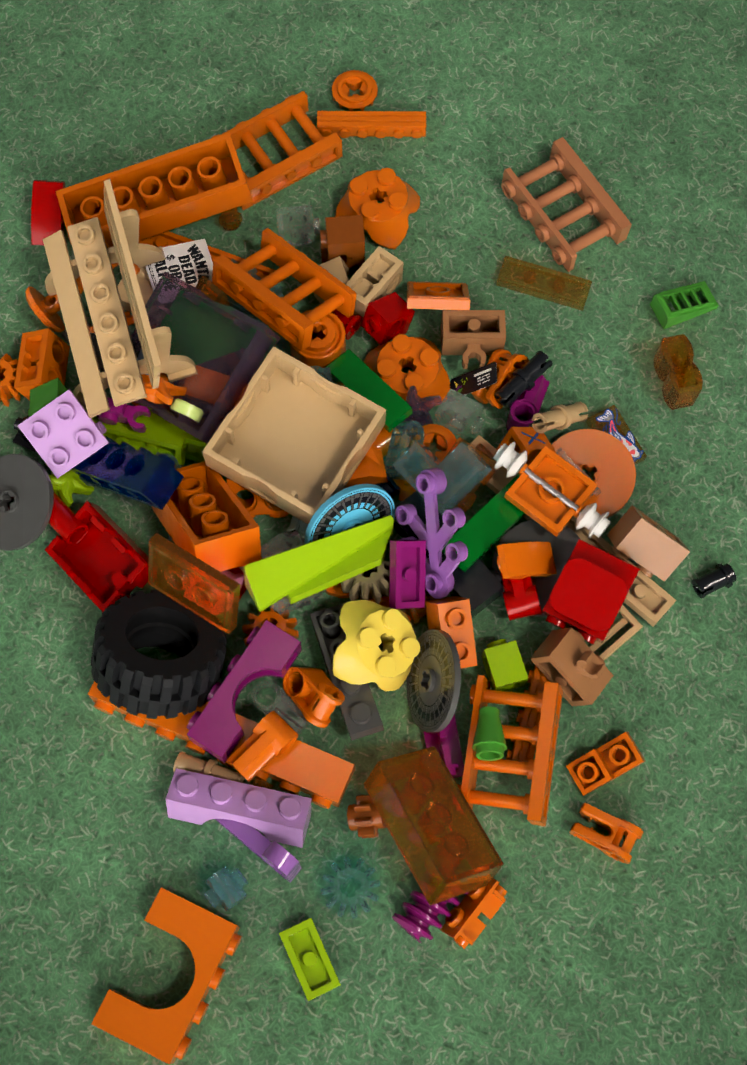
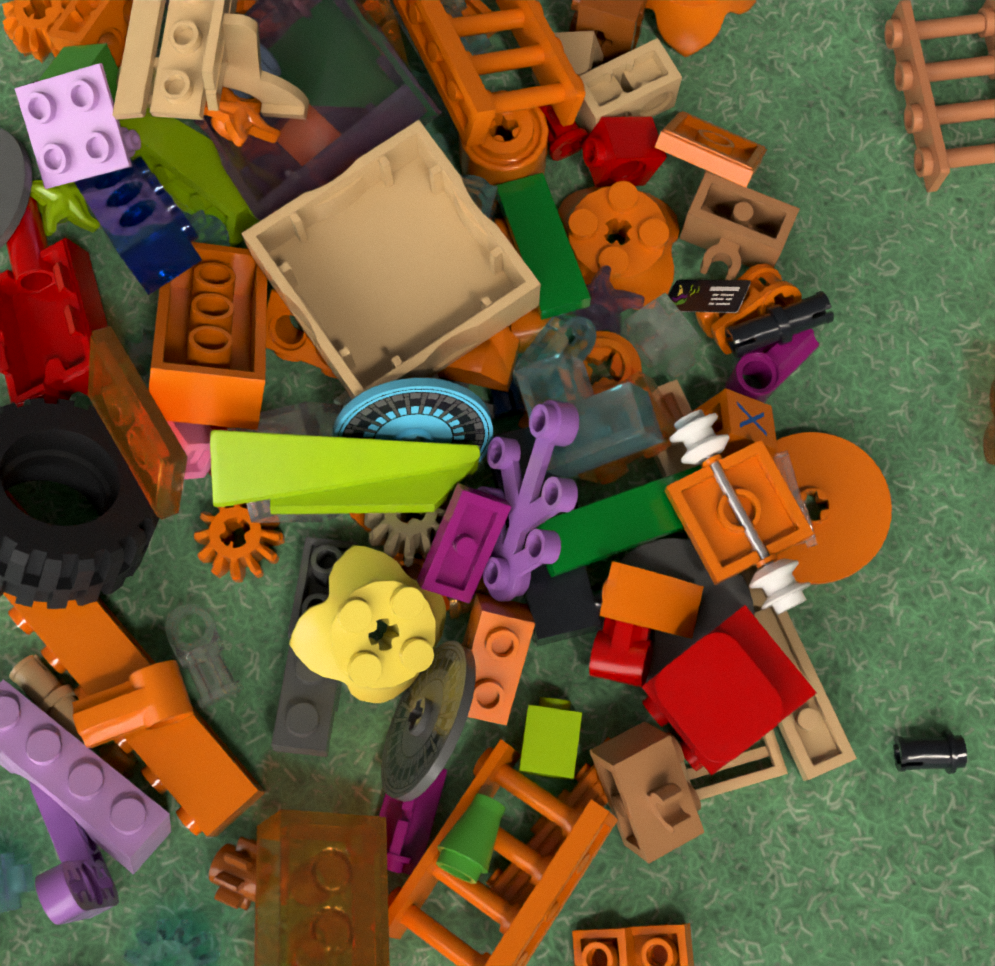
camera: 25 degrees right, 5 degrees up
(125, 414) = (176, 134): magenta plate -> none
(187, 409) = (262, 165): yellowish green tile -> none
(268, 654) = (86, 647): magenta arch -> none
(312, 694) = (250, 658): orange piece -> none
(544, 283) = (882, 194): clear orange tile -> none
(559, 417) = (808, 404): tan pin -> none
(614, 424) = (887, 447): tile -> none
(648, 544) = (851, 655): brick -> none

